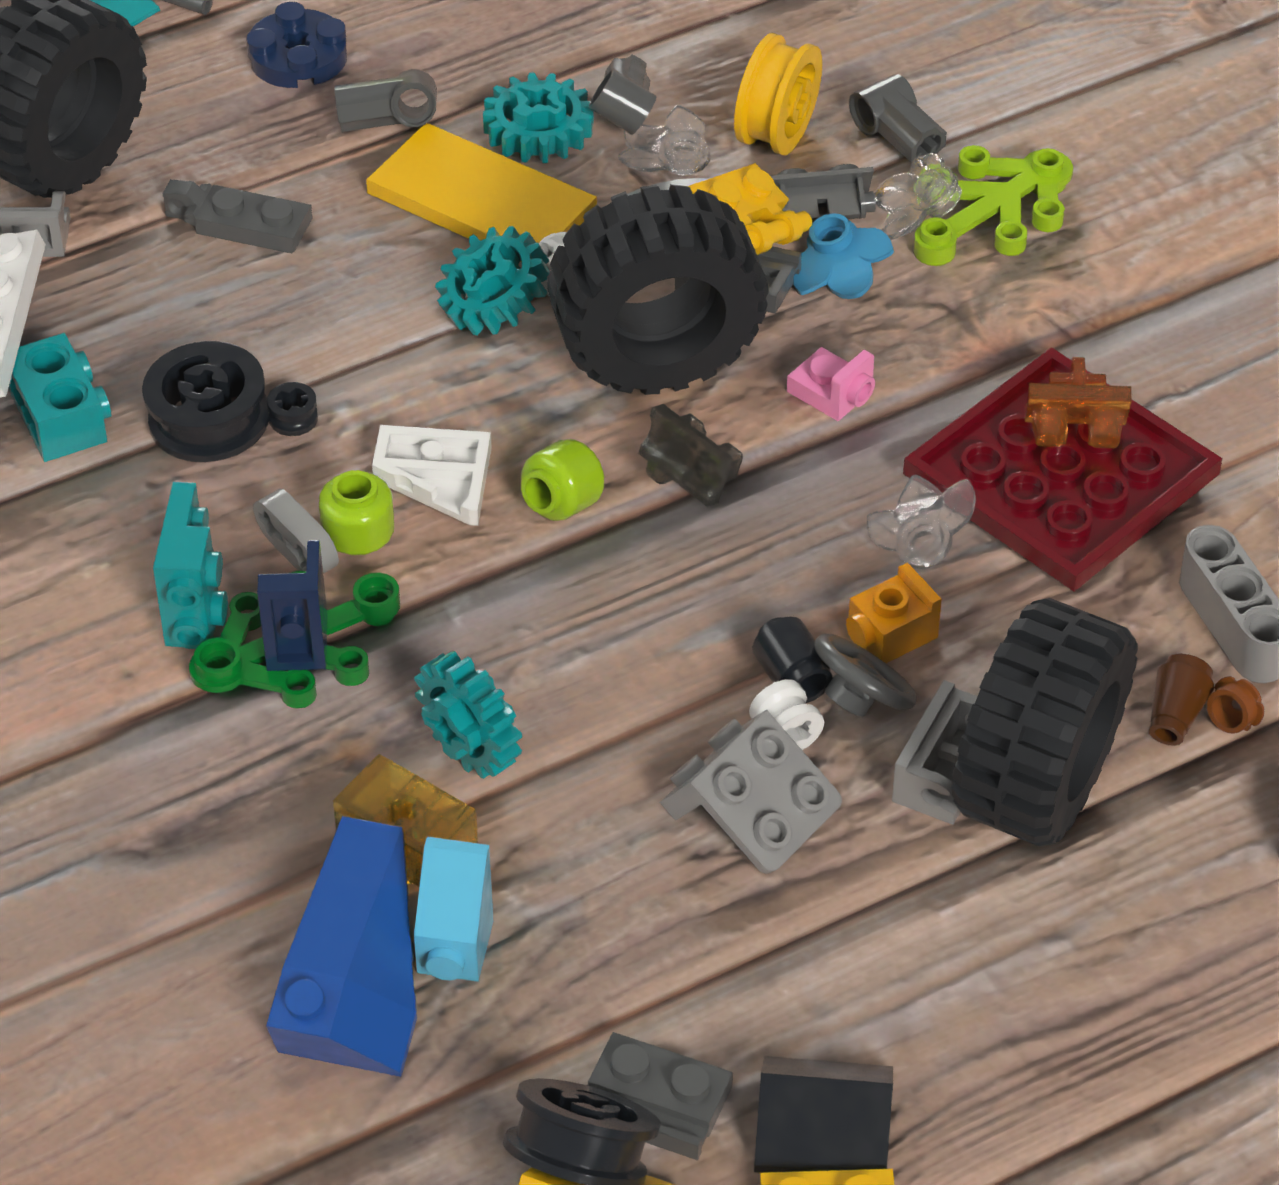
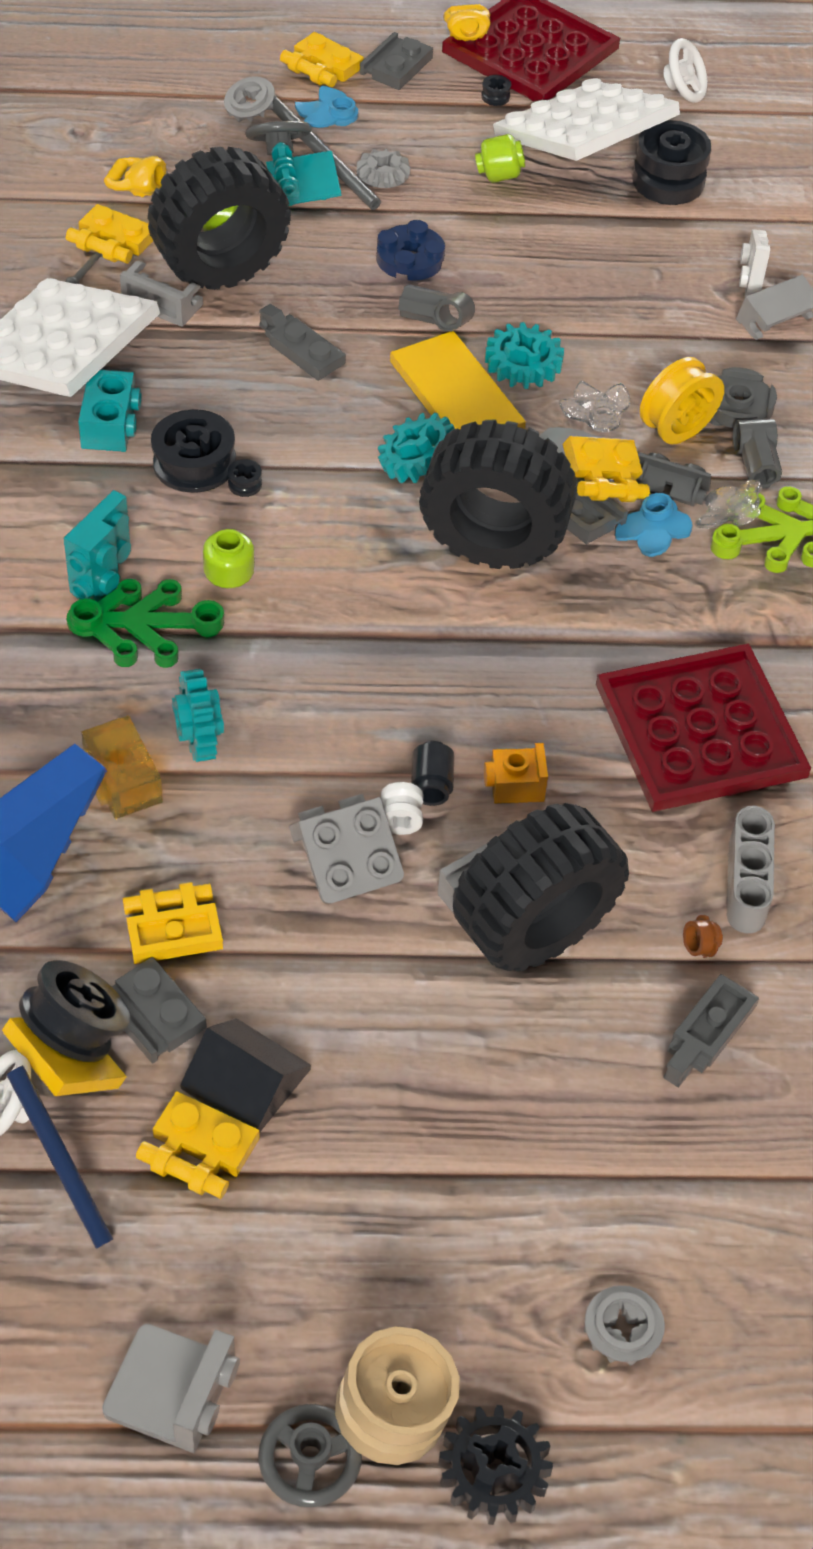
camera: 25 degrees right, 5 degrees up
(289, 529) = (187, 556): light grey beam -> none
(295, 616) = (139, 606): dark blue panel -> none
(436, 467) = (302, 551): white wing -> none
(453, 909) = (103, 834): medium azure slope -> none
(562, 480) = (371, 593): lime head -> none
(613, 993) = (175, 931): none -> yellow plate
(624, 94) = (586, 360): dark grey piece -> none
(683, 453) = (458, 611): clear smoke hips -> none
(832, 382) = (592, 605): bright pink bracket -> none
(853, 64) = (757, 399): none -> dark grey plate
(861, 677) = (461, 807): dark grey piece -> none
(921, 518) = (584, 721): clear plate -> none
(1077, 400) = (730, 683): clear orange hips -> none
(1179, 696) = (667, 914): reddish brown cone -> none

